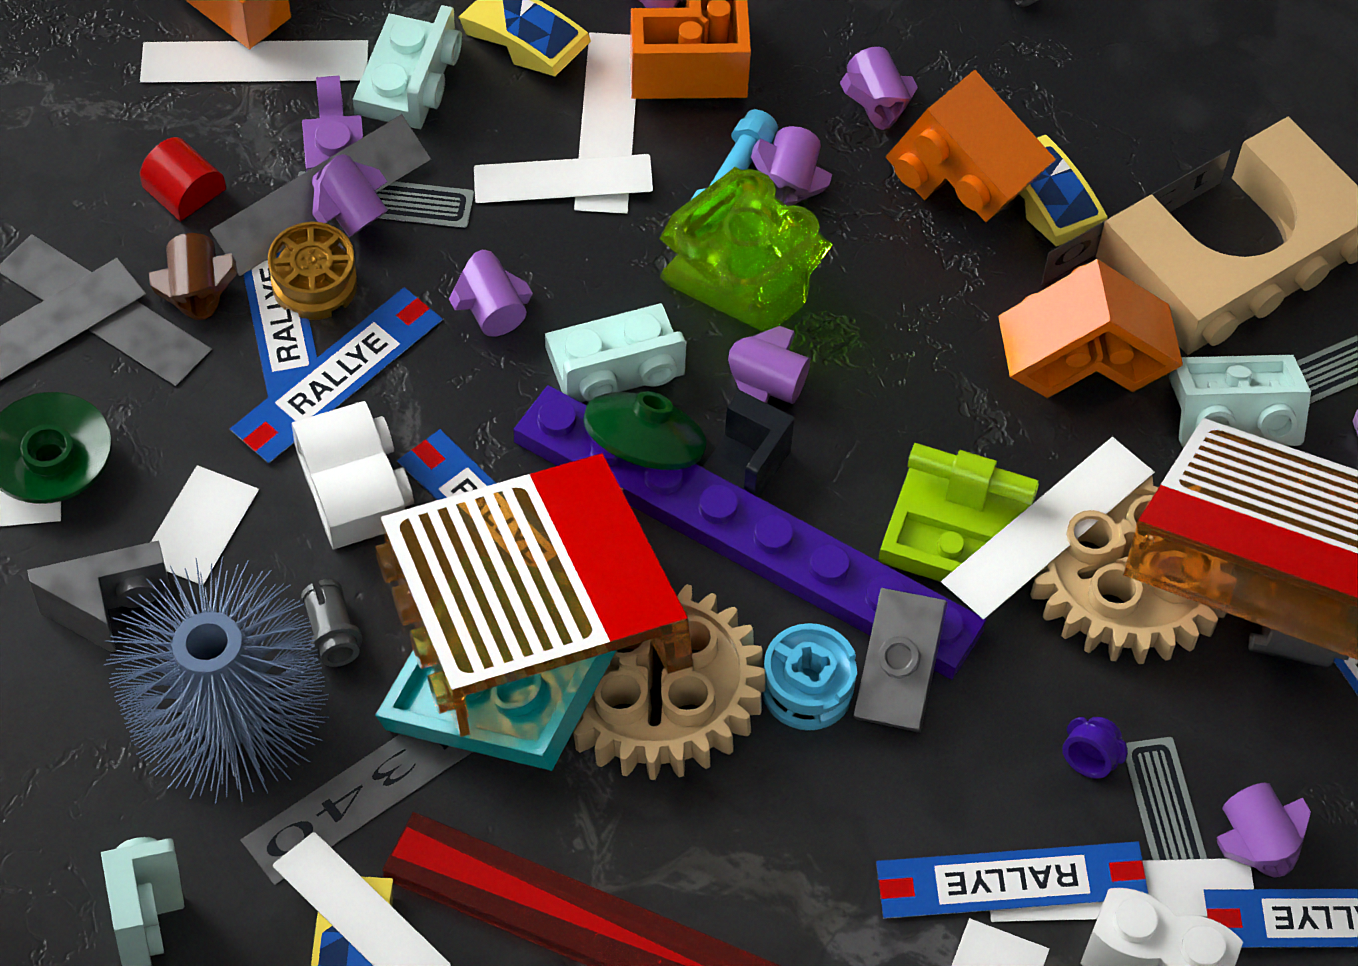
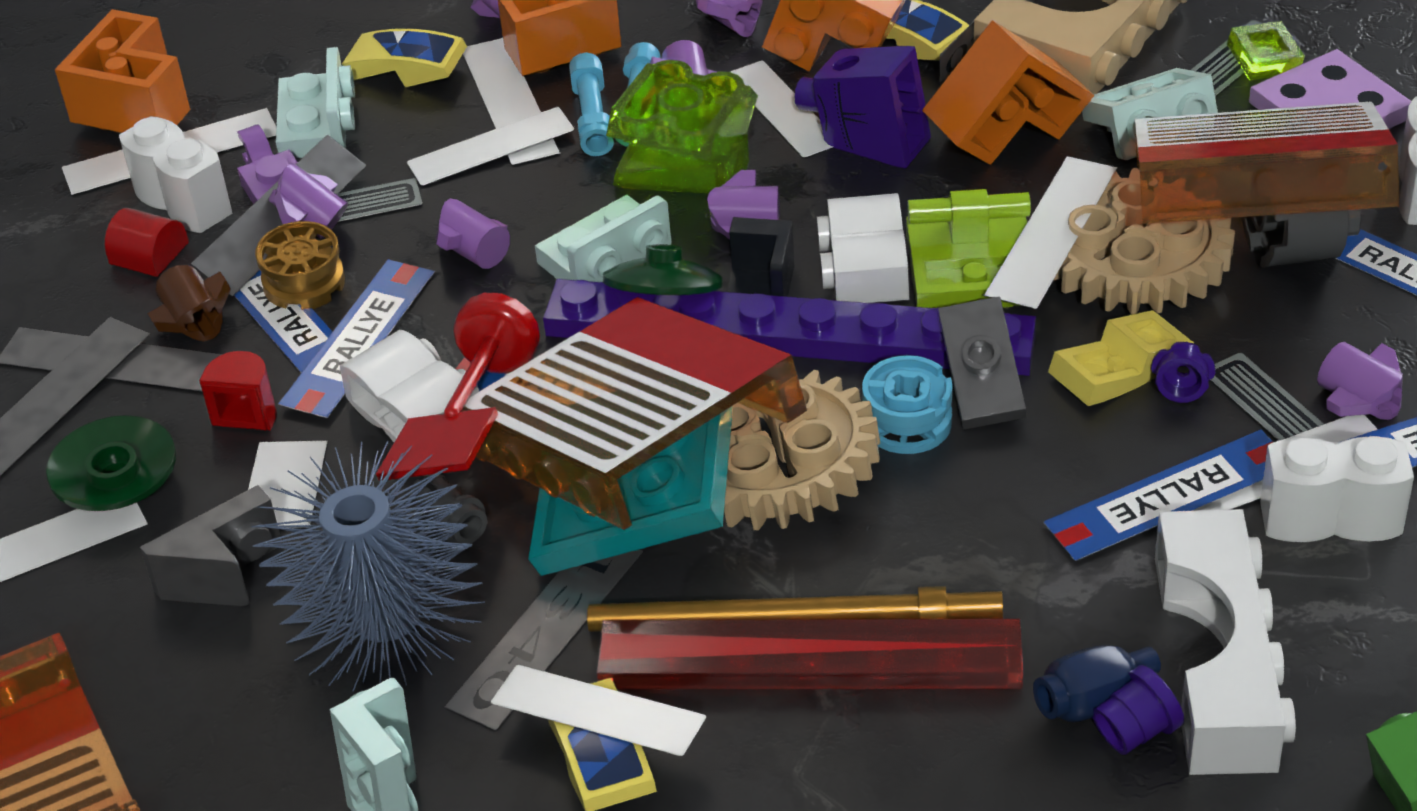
camera: 15 degrees left, 15 degrees down
(193, 408) = (238, 391): none -> red brick
(238, 108) = (176, 173): none -> white brick
(343, 562) = (496, 338): none -> red piece
(691, 131) = (588, 82): none -> medium azure bar
(715, 918) = (927, 604): none -> pearl gold bar
(859, 469) = (865, 248): none -> white brick
(874, 241) = (778, 105): none -> white sticker
(948, 287) = (870, 103): none -> dark purple torso
(1045, 701) = (1116, 362): none -> light yellow slope

